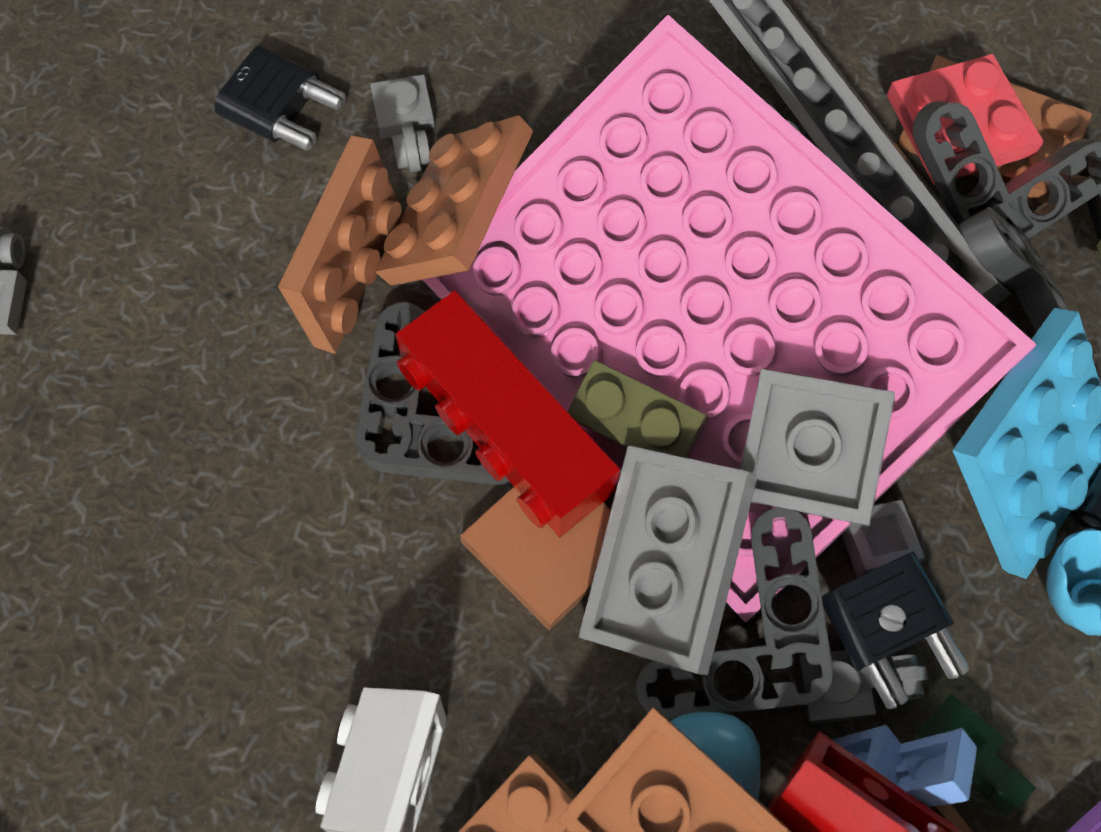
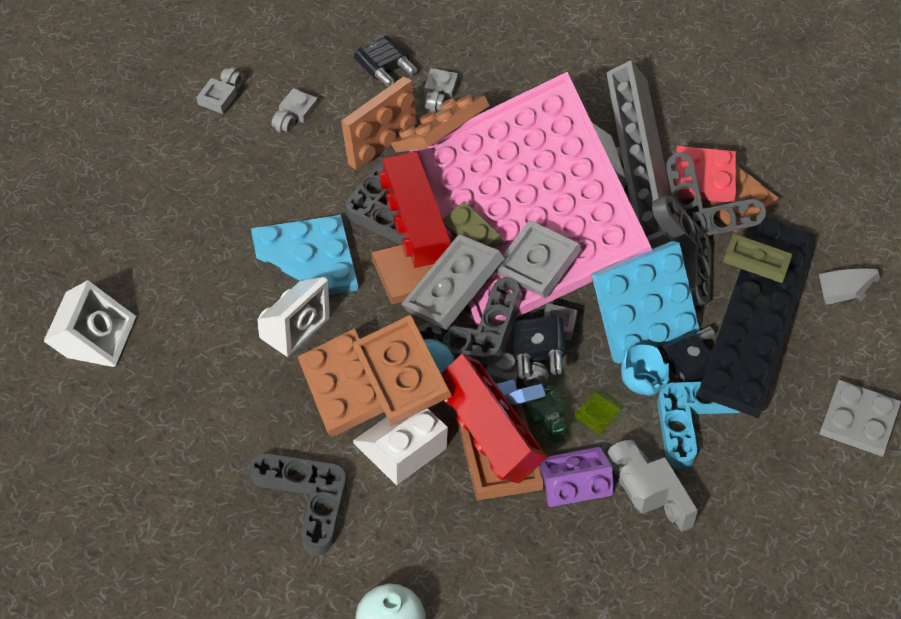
camera: 25 degrees right, 15 degrees down
(154, 260) = (294, 107): none -> light grey plate
(337, 586) = (309, 251): none -> medium azure plate
(1050, 709) = (597, 413): none -> clear neon green tile

